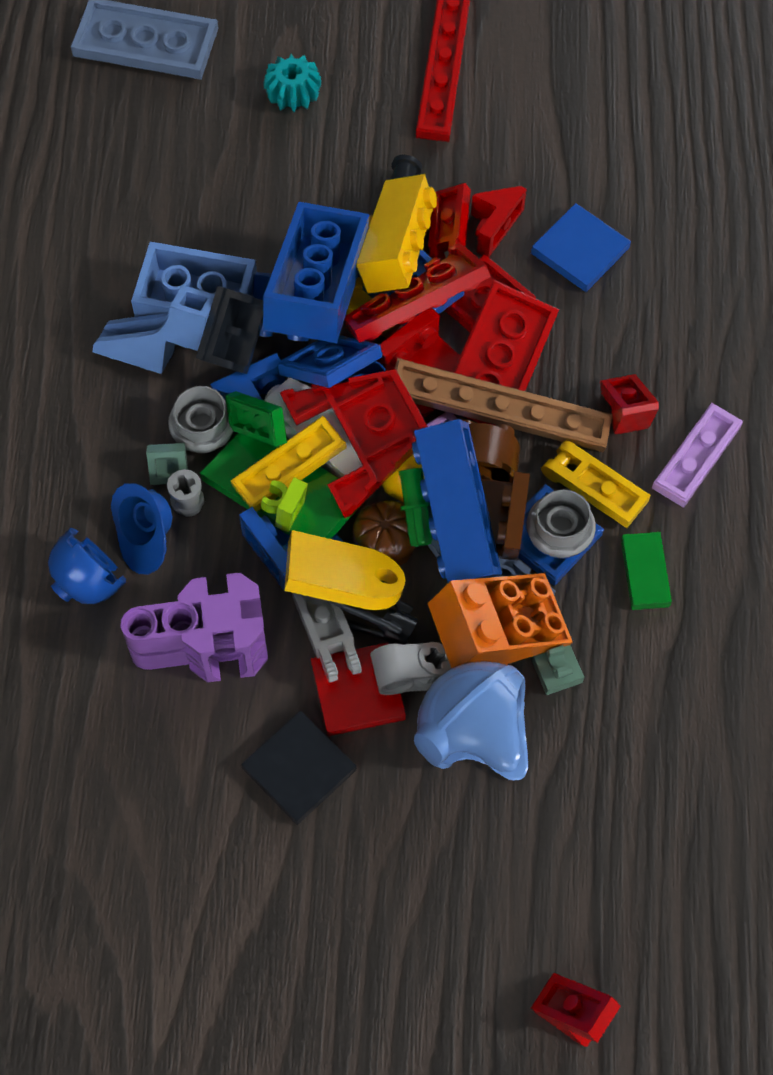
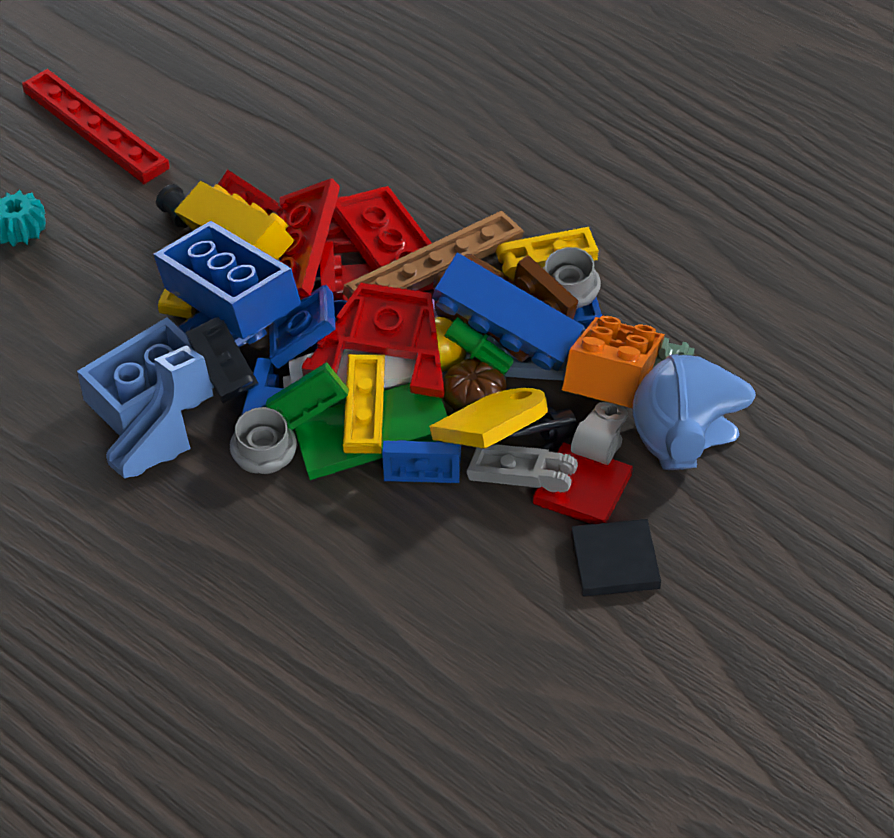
camera: 50 degrees left, 15 degrees down
(82, 570) = (324, 589): blue cylinder -> none
(141, 526) = (321, 533): blue piece -> none
(164, 461) = (278, 487): sand green tile -> none
(182, 482) = (312, 488): light grey bush -> none
(200, 630) = (456, 539): medium lavender connector -> none
(288, 505) = (401, 417): lime tile -> none
(497, 214) = (269, 171): red slope -> none
(580, 247) = (344, 149): blue tile -> none
(630, 402) = (507, 190): red slope -> none
(646, 571) = (641, 269): green tile -> none
(697, 455) = (576, 189): lavender tile -> none

